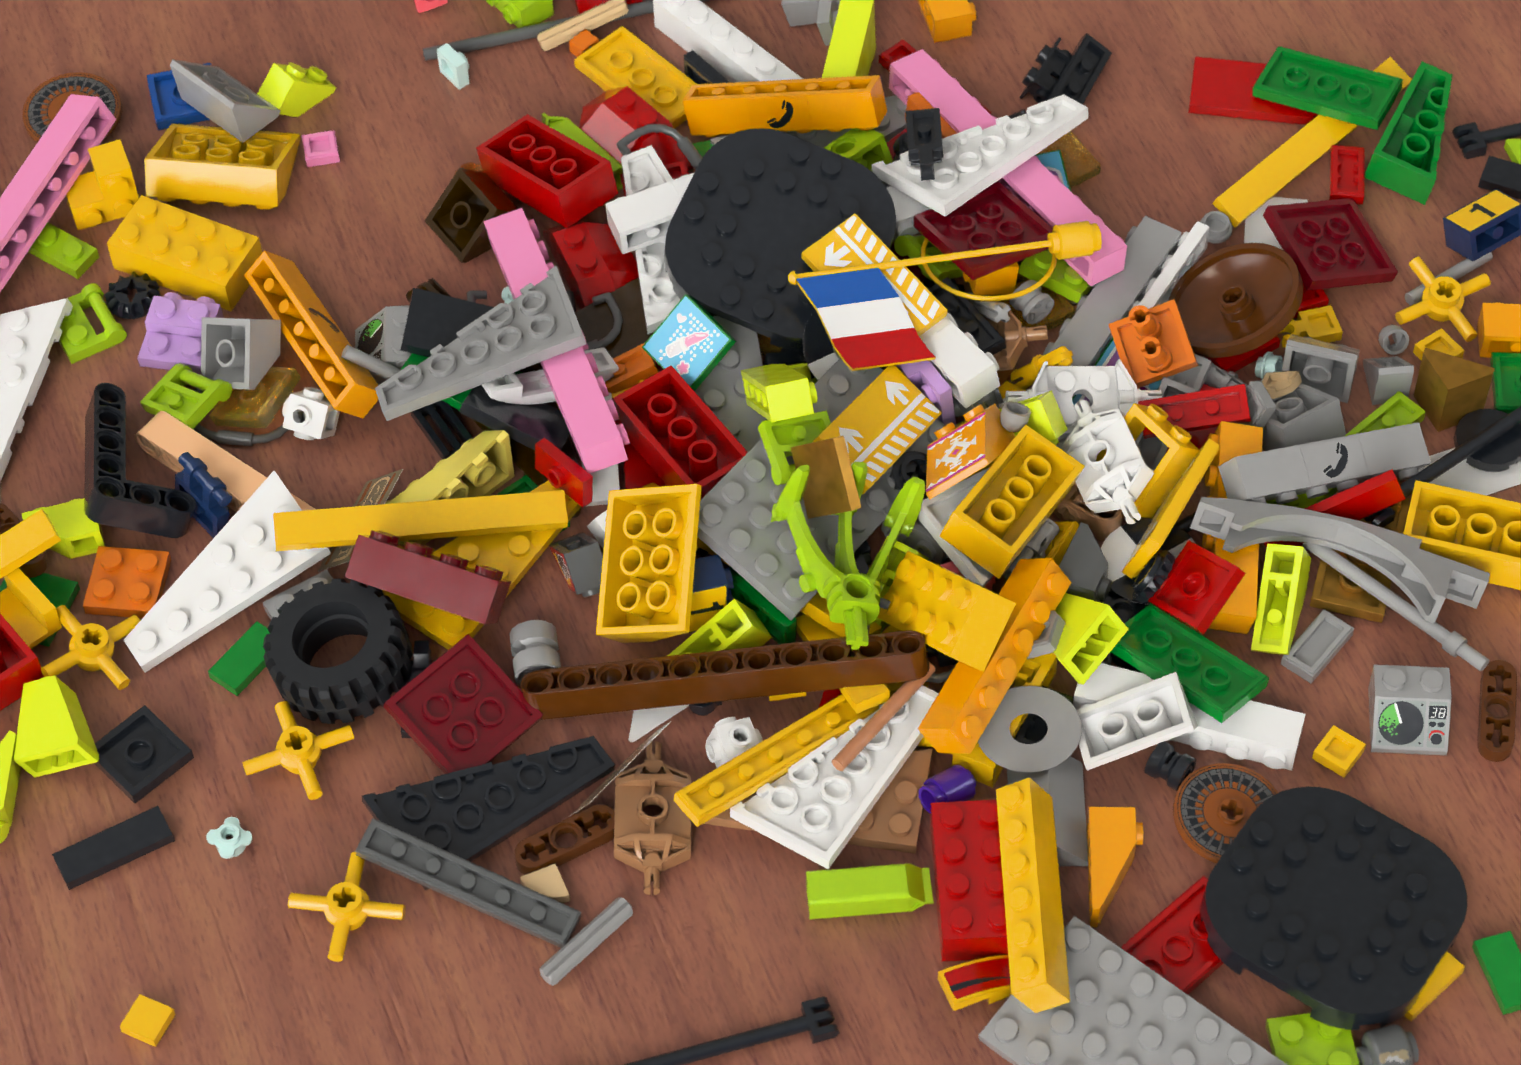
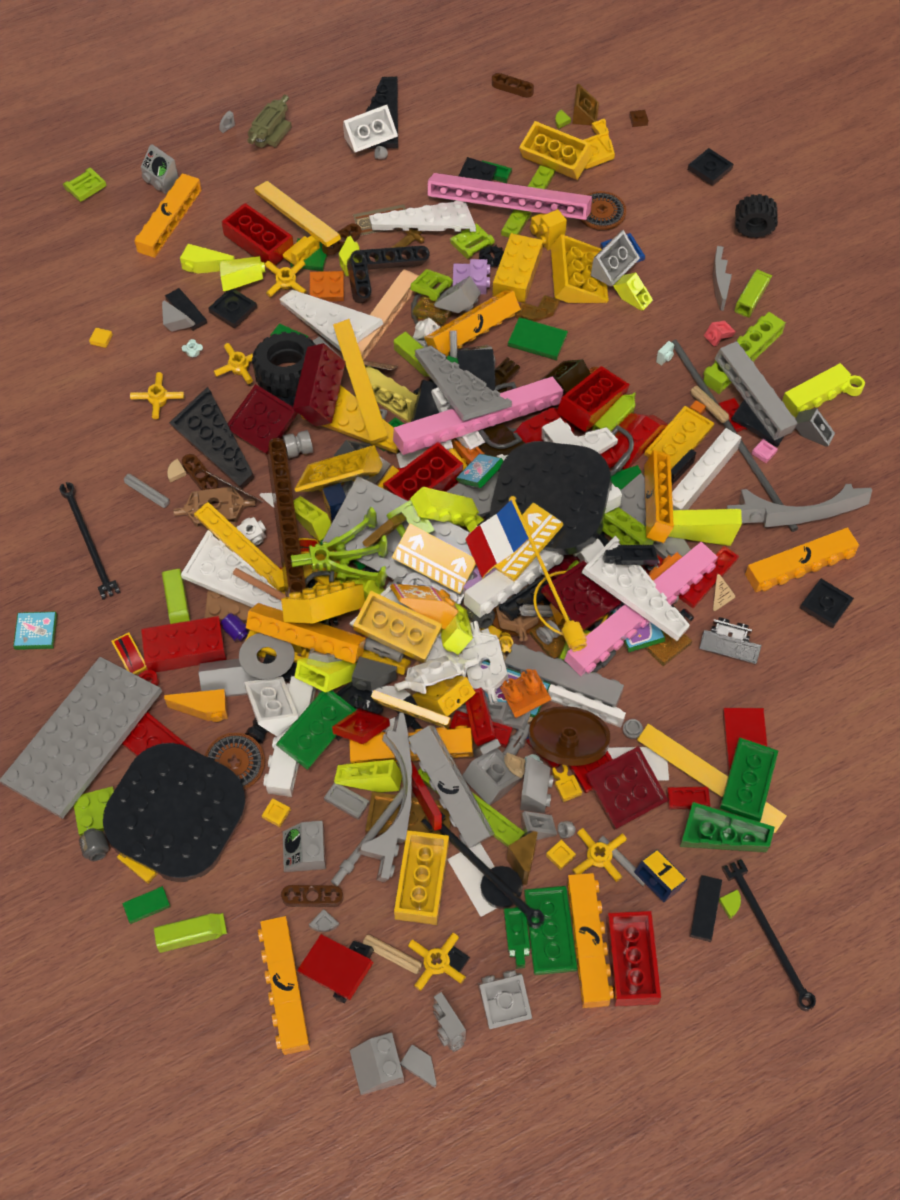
camera: 80 degrees right, 5 degrees up
(53, 443) = (411, 235): none -> pearl gold sword
(145, 858) = (175, 319): none -> light grey slope
(208, 493) = (371, 299): dark blue plate -> none
(295, 234) = (545, 309): none -> pearl gold tile
(320, 148) = (600, 310): bright pink tile -> none
(357, 442) = (405, 346): none -> lime piece
(362, 250) = (537, 338): none -> green tile
(468, 883) = (169, 438): dark grey tile -> none
(563, 472) = (388, 438): red plate -> none
(972, 73) = (722, 593): none -> tan sticker
(1014, 416) = (451, 619): light grey hinge -> none
(1032, 896) = (162, 662): yellow brick -> none

